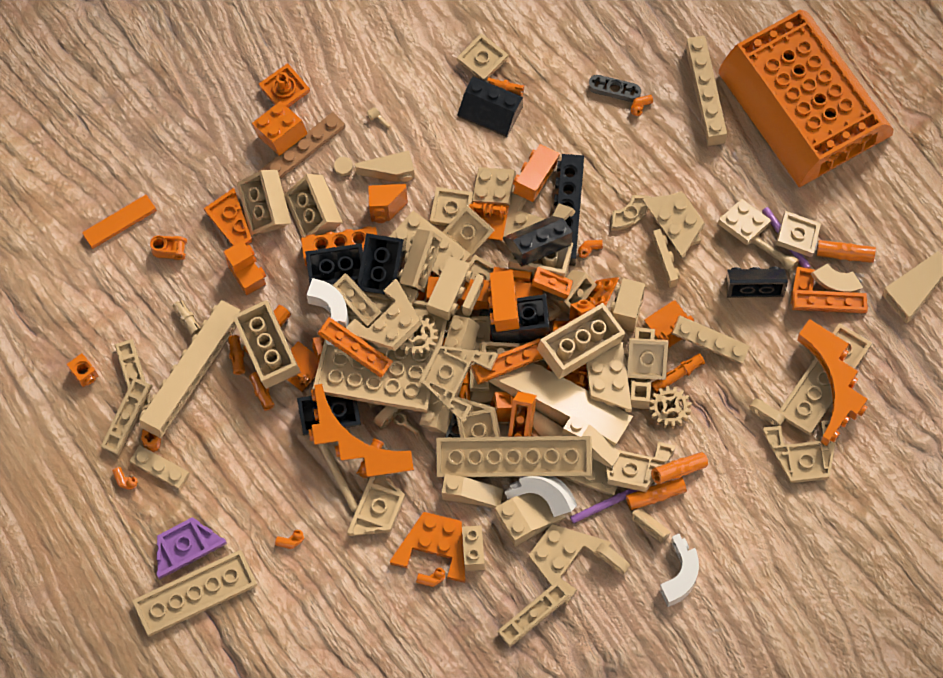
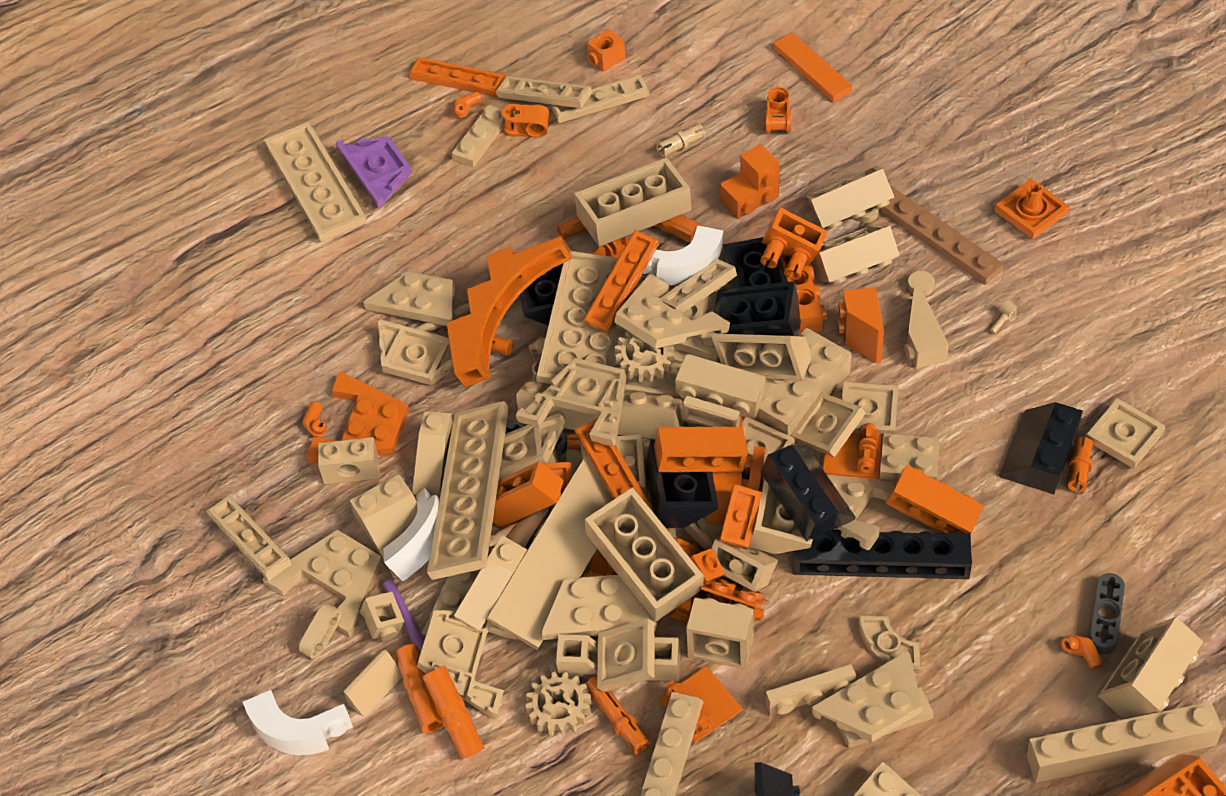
camera: 90 degrees right, 15 degrees down
(90, 487) = (456, 76): none -> orange tile
(189, 370) = (596, 136): tan brick -> none
(229, 218) = (823, 169): orange wing -> none
(279, 128) = (963, 202): orange brick -> none
(291, 542) = (375, 269): orange arm -> none
(316, 236) = (794, 238): none -> orange brick
(325, 507) = (416, 298): none -> tan wing
(587, 247) = (822, 585): orange arm -> none
(602, 519) = (384, 609): none -> tan brick
(664, 66) = (1151, 669): none -> tan brick

